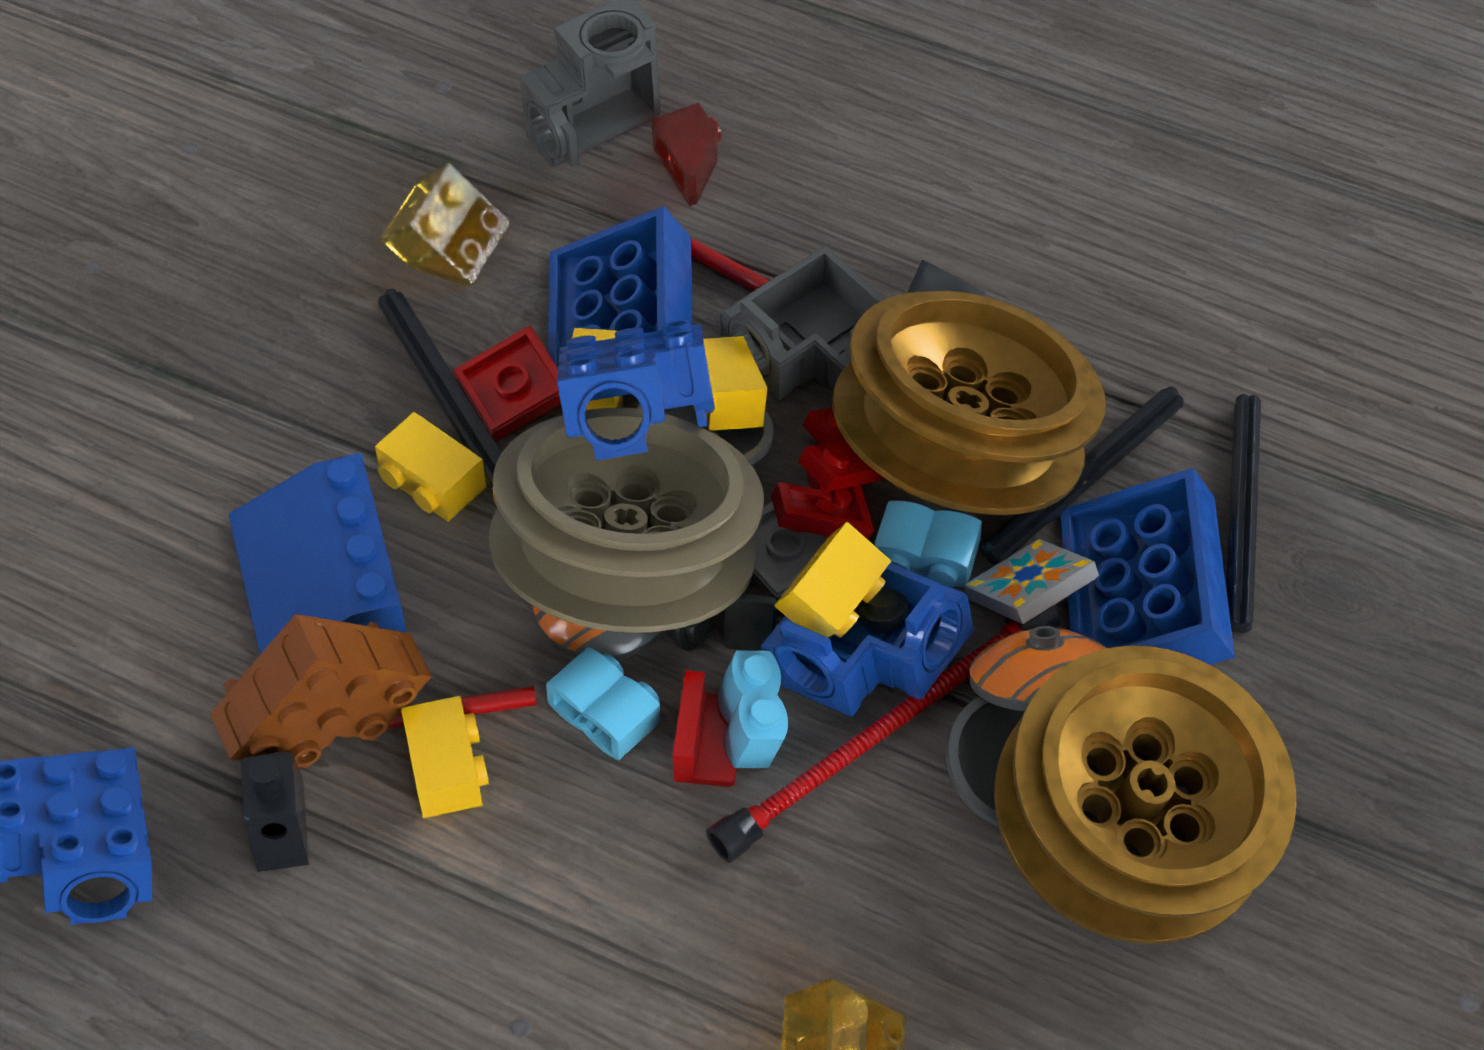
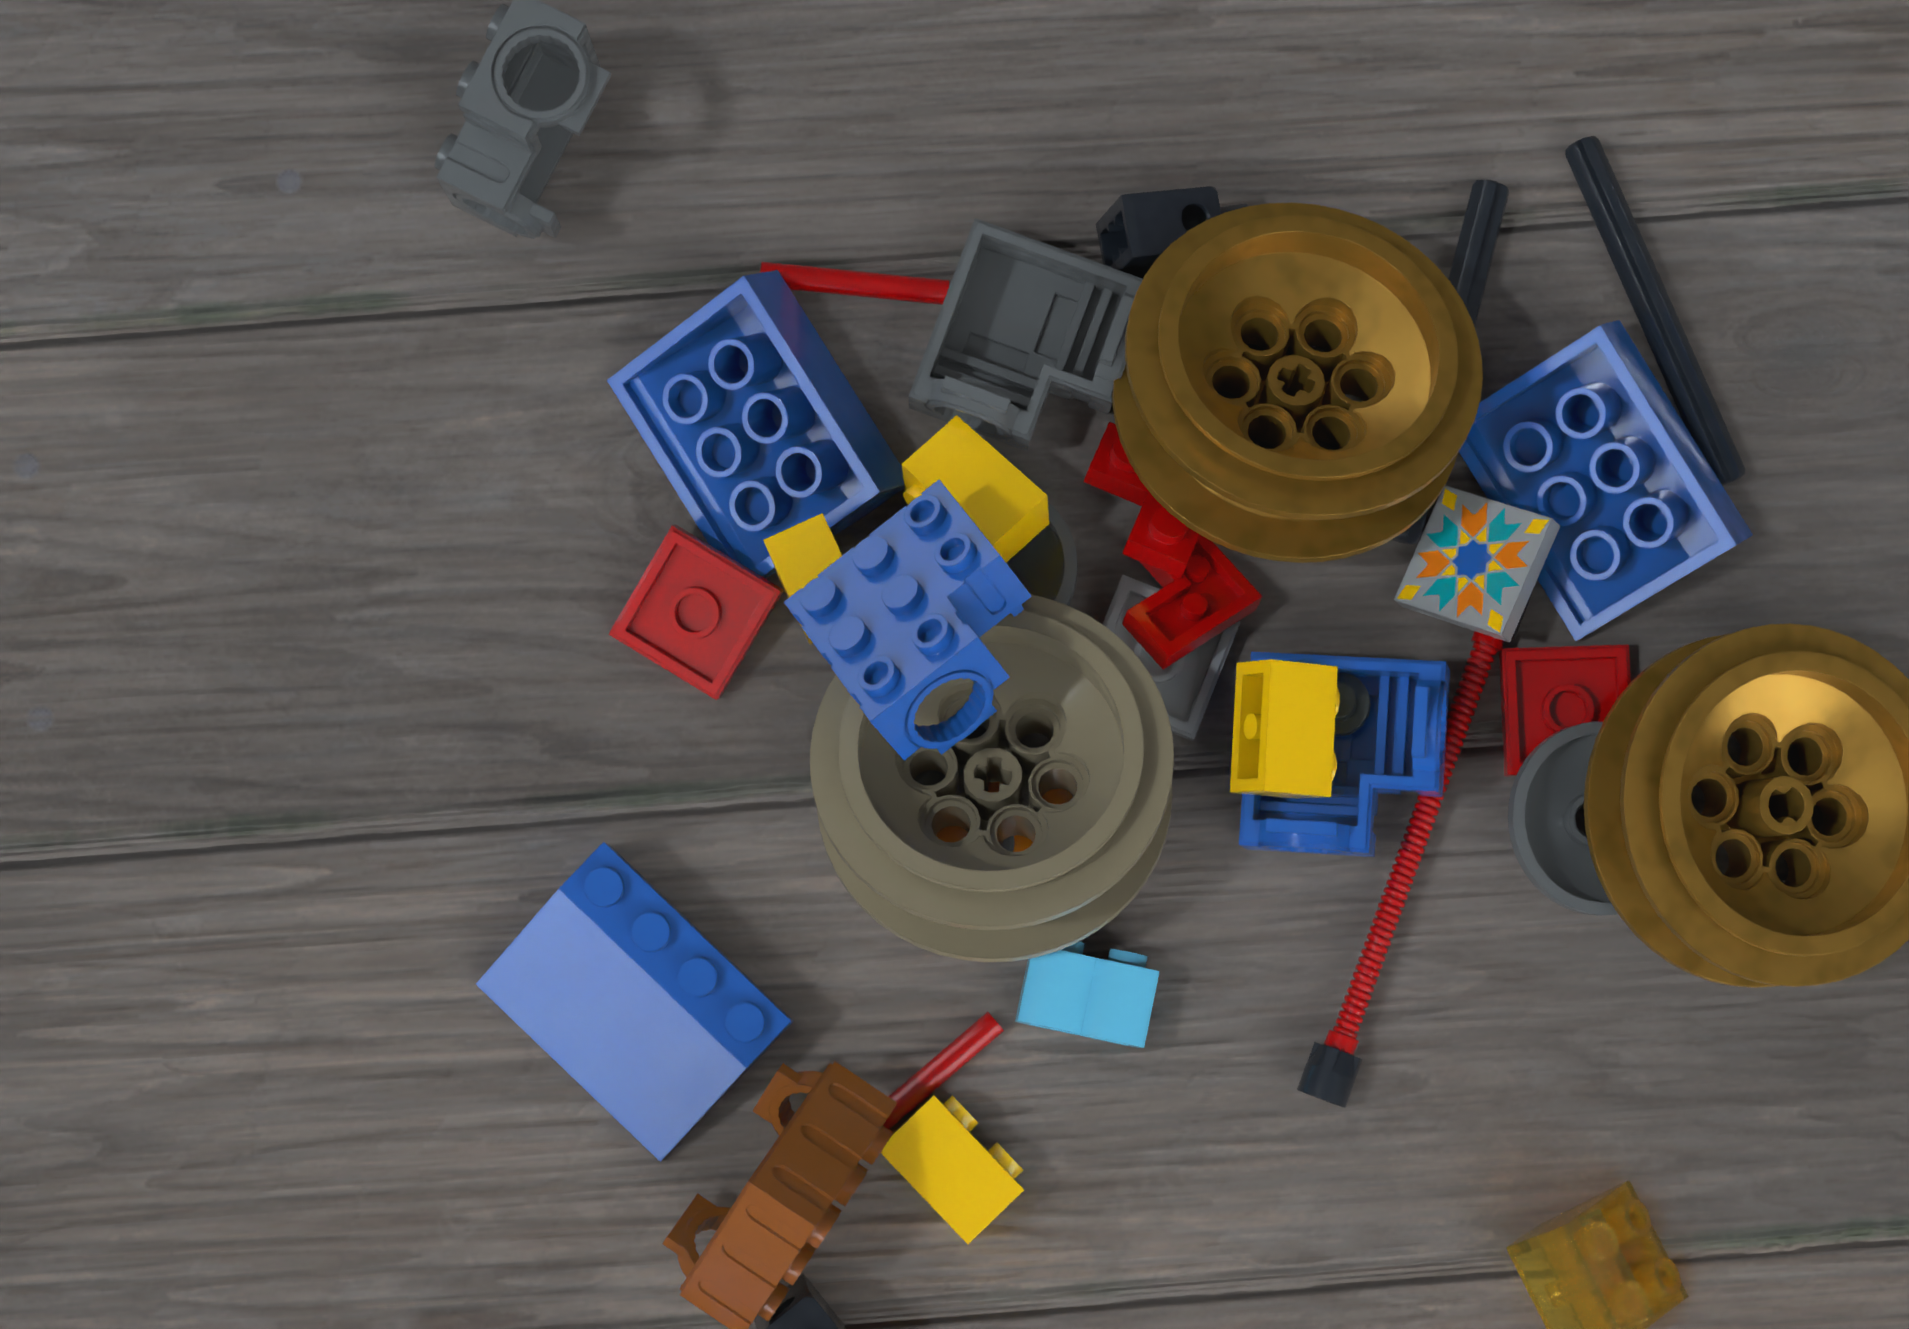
camera: 35 degrees left, 30 degrees up
(430, 467) = (679, 793): yellow brick -> none
(440, 380) = (615, 661): black axle -> none
(446, 227) = (459, 425): clear yellow slope -> none
(687, 148) = (686, 126): clear red slope -> none
(699, 737) = (1223, 961): red panel -> none
(749, 622) = (1194, 793): pearl dark grey slope -> none
(752, 709) = (1257, 905): medium azure brick -> none
(930, 542) = (1306, 590): medium azure brick -> none
(1018, 665) = (1575, 726): orange dish -> none

